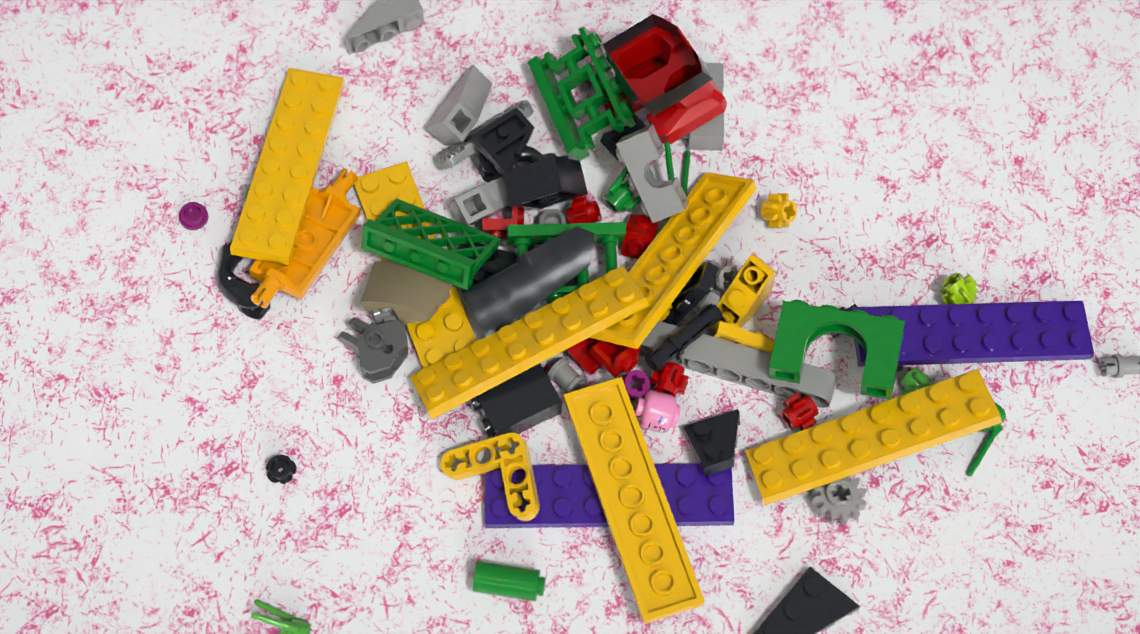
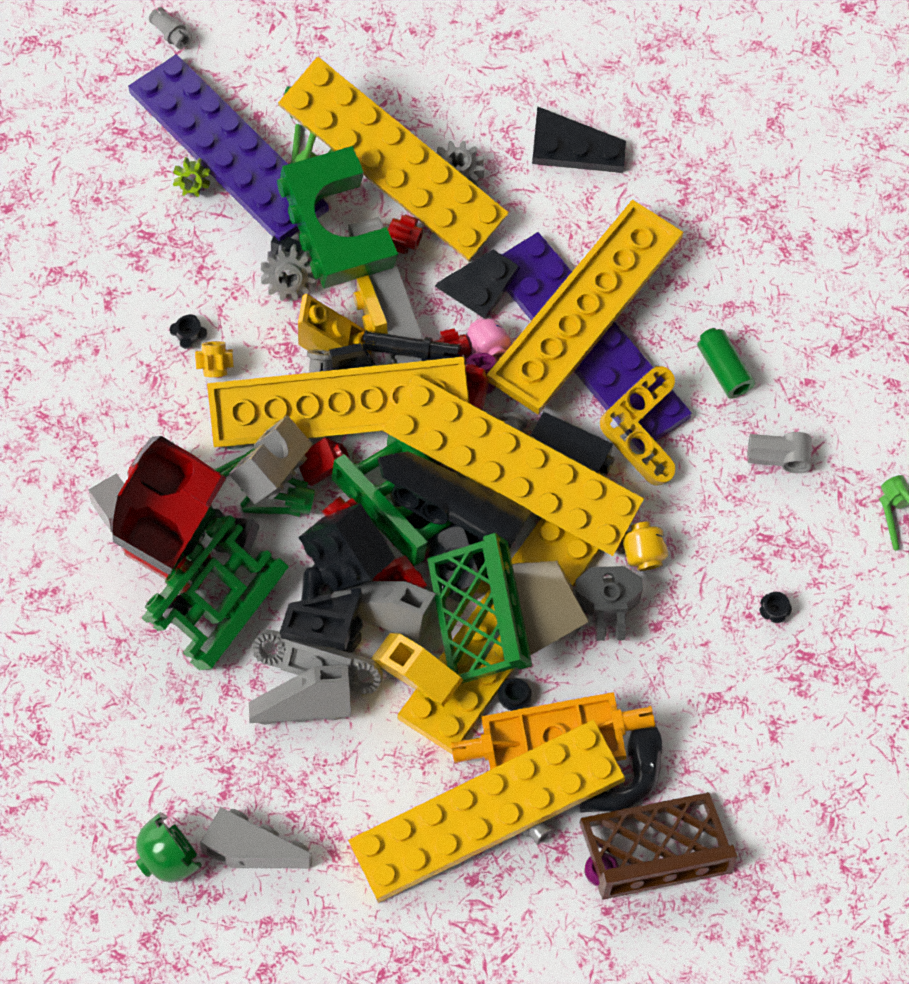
camera: 130 degrees left, 0 degrees up
(153, 247) = (671, 868): none -> reddish brown fence
(354, 247) = (514, 694): none -> black plate
(395, 573) = (789, 451): none -> light grey piece
(399, 405) = (645, 546): none -> yellow head
(424, 177) = (417, 668): none -> yellow slope
(823, 207) = (184, 323): none -> black plate
(823, 293) = (280, 280): none -> light grey gear

